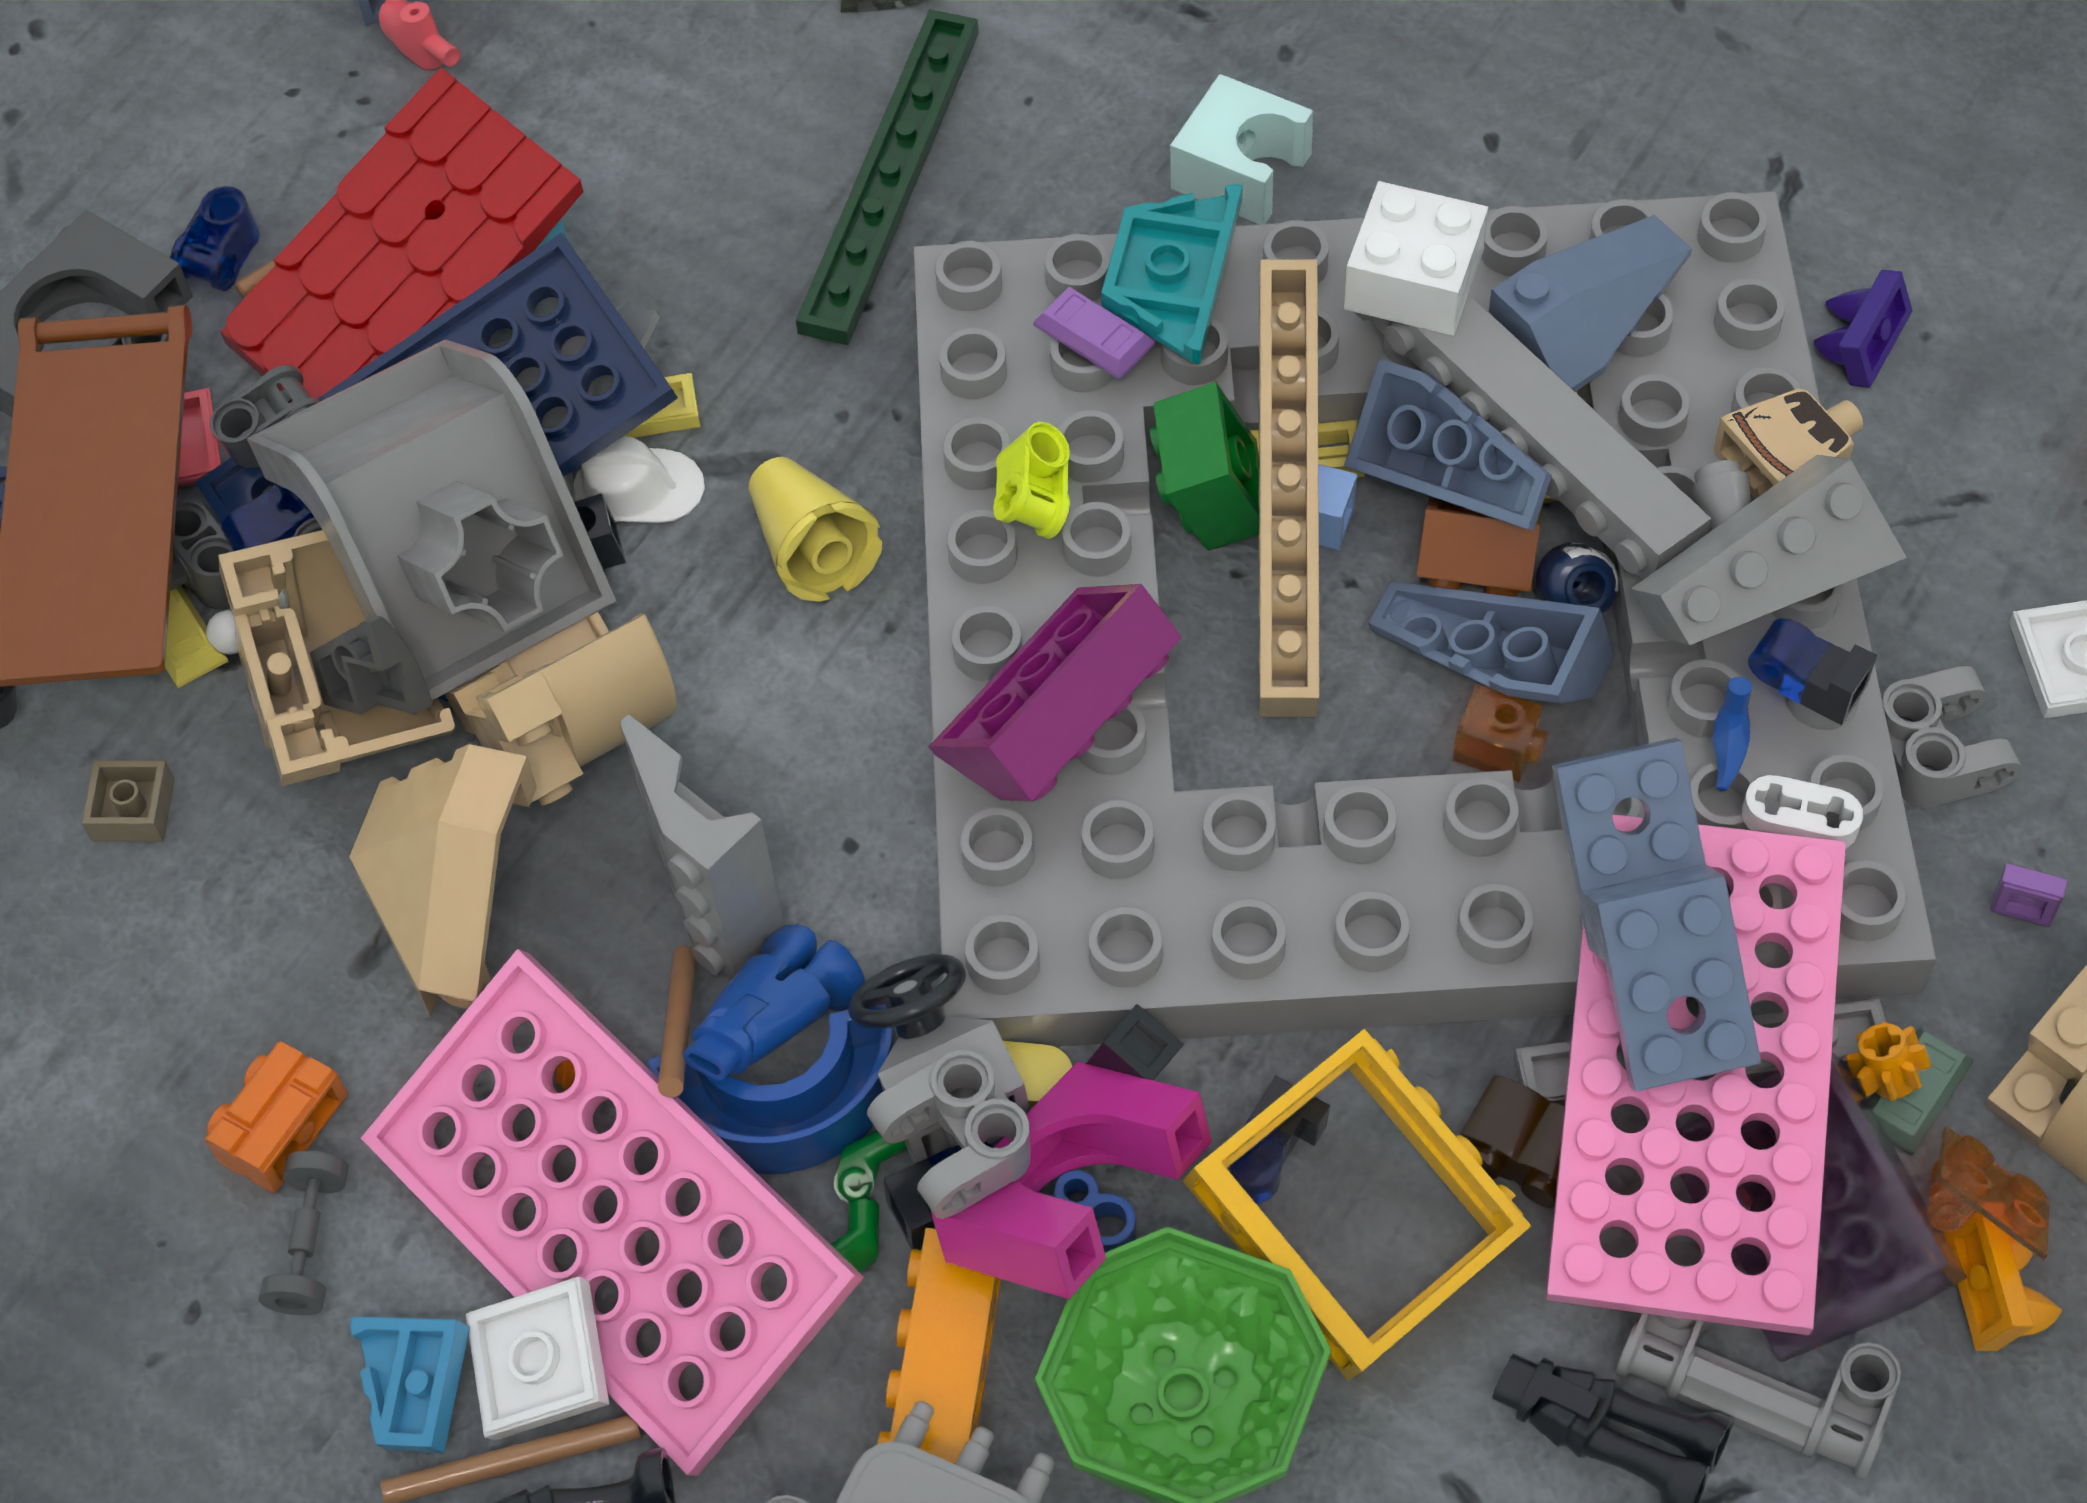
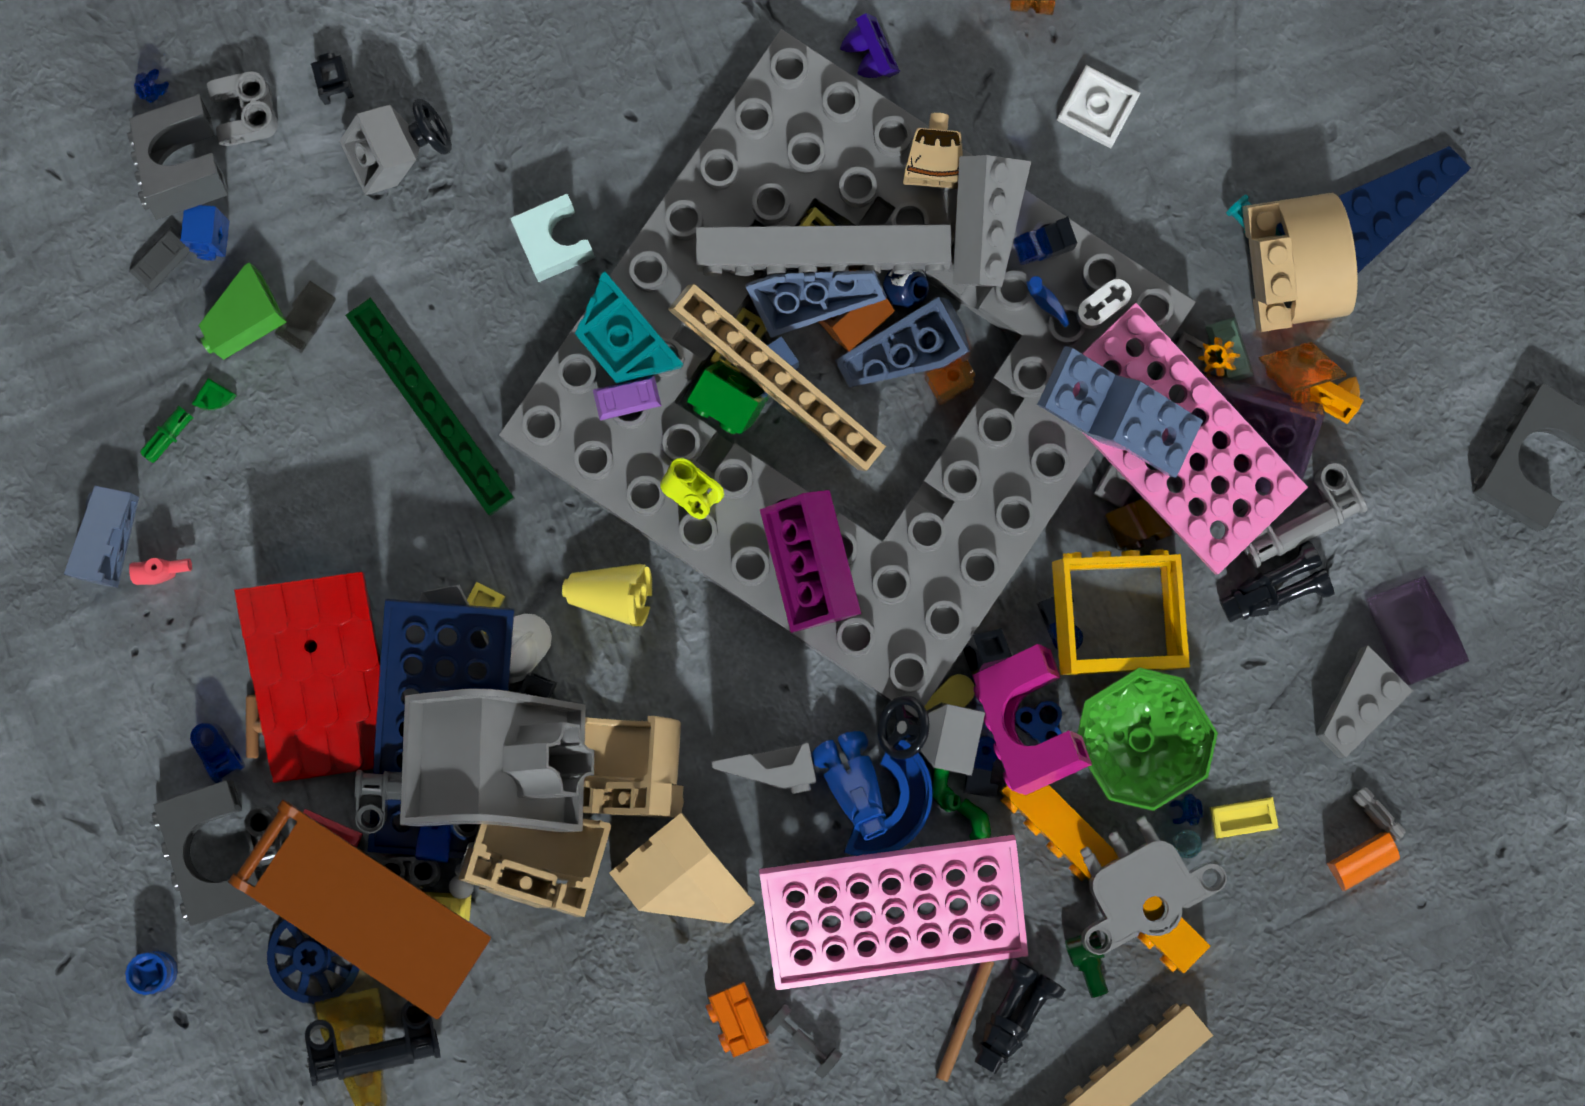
camera: 55 degrees left, 25 degrees up
(128, 800) = (520, 986): dark tan piece -> none
(370, 669) = (554, 847): dark grey slope -> none
(411, 1379) = (902, 1038): dark azure wing -> none
(537, 1358) = (935, 982): white tile -> none
(677, 1022) = (832, 826): medium nougat bar -> none
(926, 1099) = (993, 751): light grey piece -> none
(1415, 258) = (726, 239): white brick -> none
(1589, 297) = (789, 173): sand blue wedge -> none
(1721, 490) = (937, 205): light grey cone -> none
(1961, 769) = (1092, 207): light grey piece -> none
(2028, 895) = (1188, 232): medium lavender tile -> none

